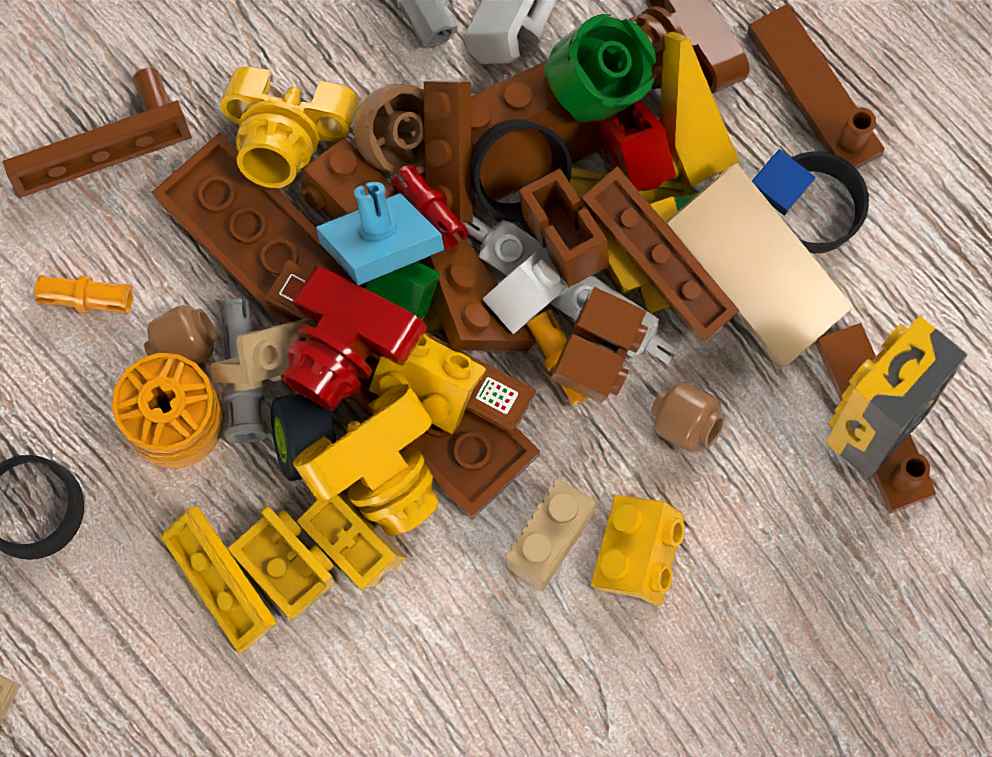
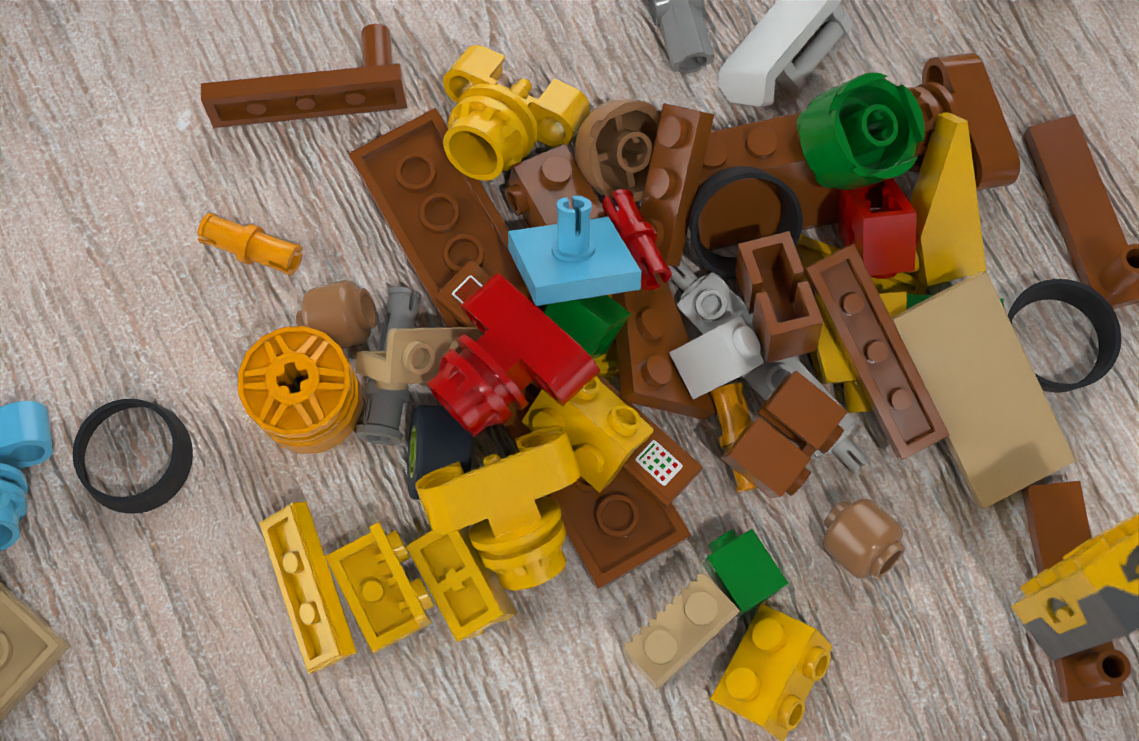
camera: 15 degrees right, 0 degrees up
(593, 469) = (743, 570): none -> green brick
(782, 181) = (1030, 304): blue tile -> none

